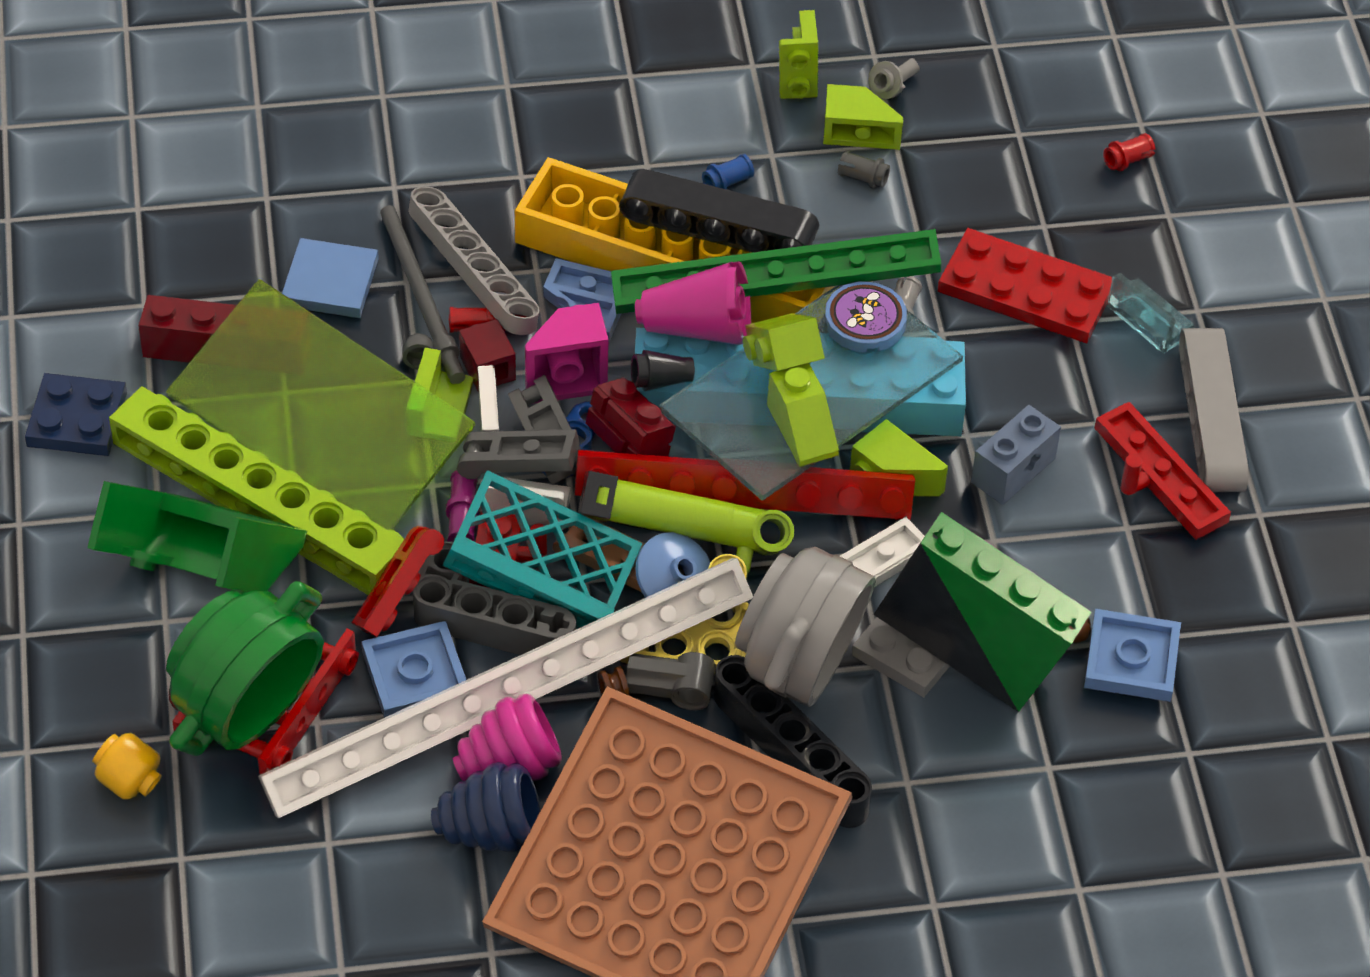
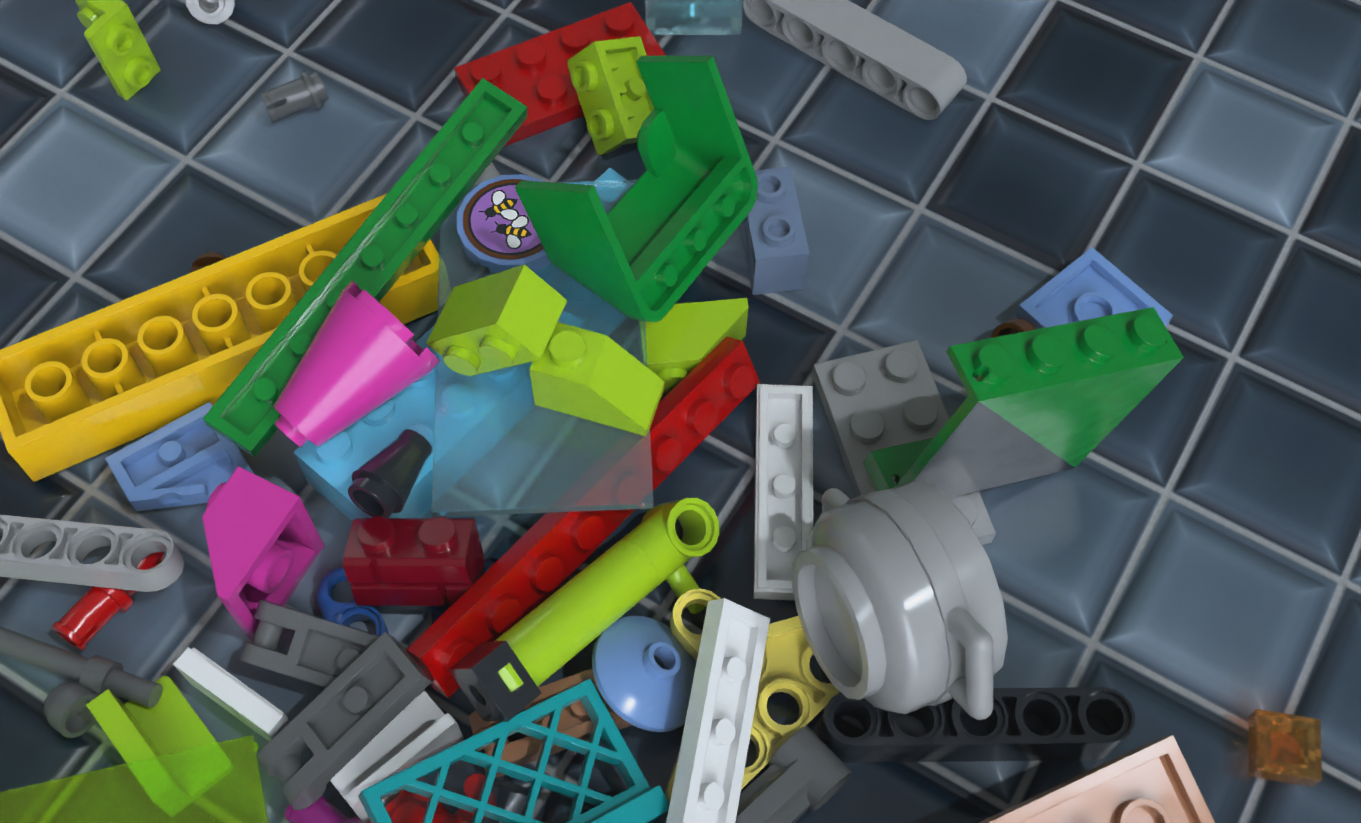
camera: 50 degrees left, 10 degrees up
(485, 346) = (154, 632): dark red brick -> none
(715, 213) = (236, 258): black beam -> none
(728, 172) = (168, 222): blue pin -> none
(860, 119) = (233, 53): lime slope -> none
(926, 899) = (1285, 748): none -> clear orange plate
(945, 387) = (674, 215): none -> green windscreen
(1031, 315) = (611, 91): none -> lime bracket
(1156, 465) = (888, 131): red plate -> none

